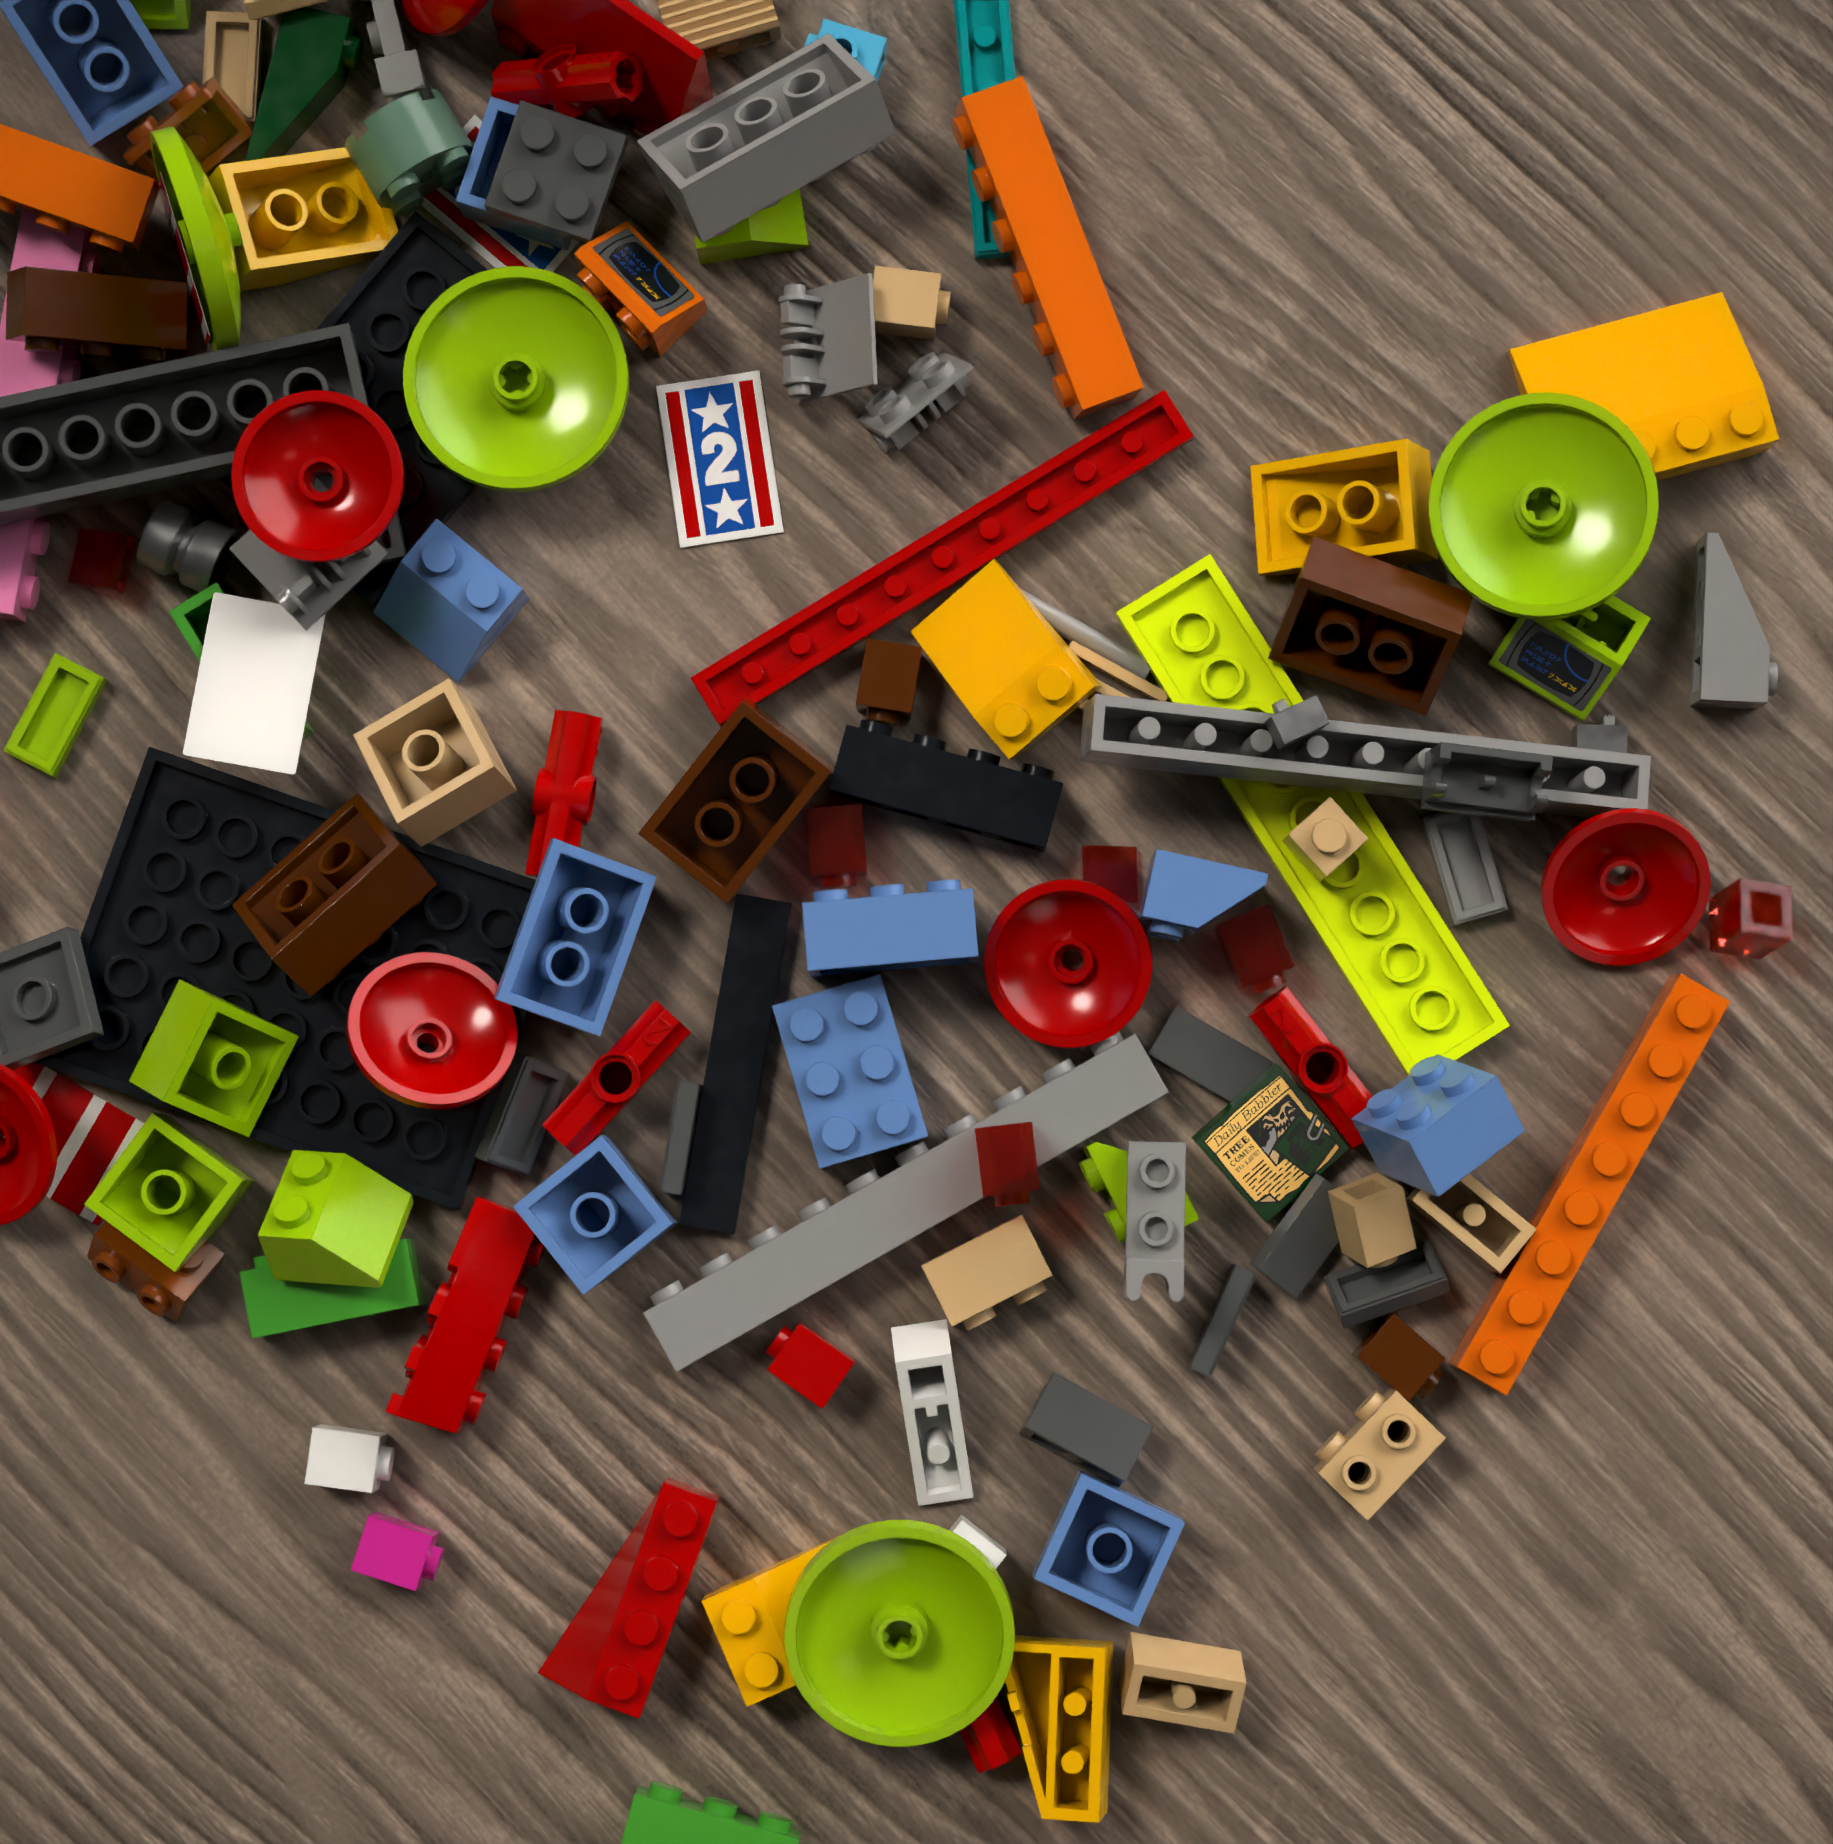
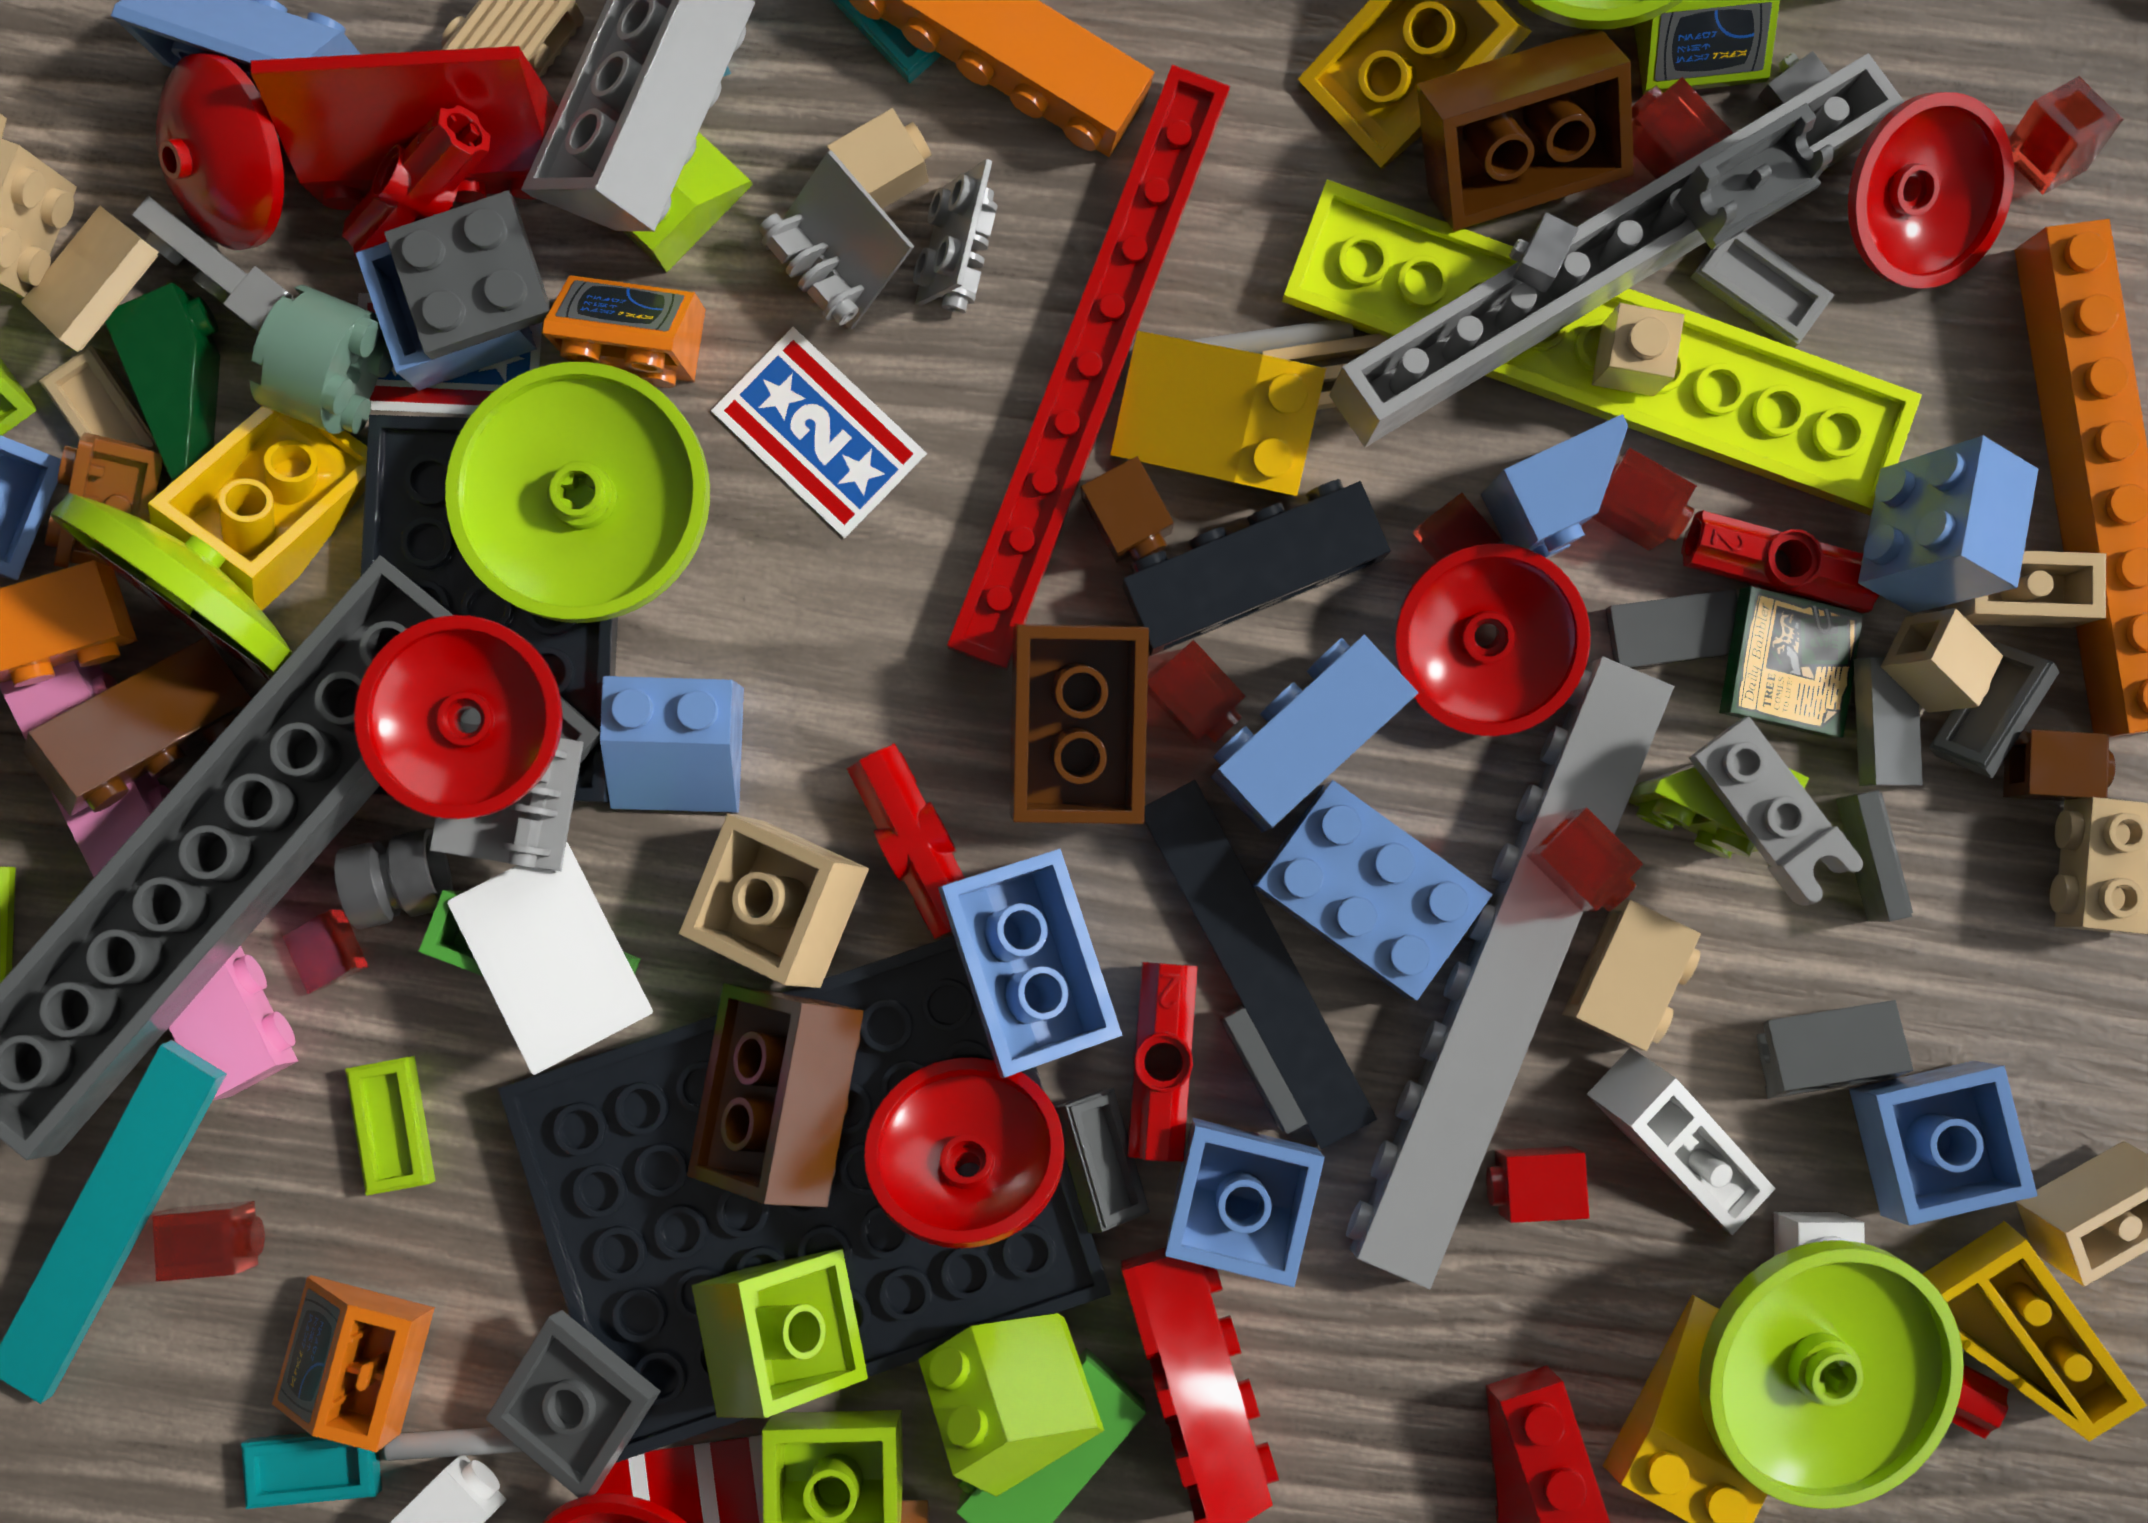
camera: 40 degrees left, 0 degrees up
(1483, 703) = (1673, 127): none -> clear red brick

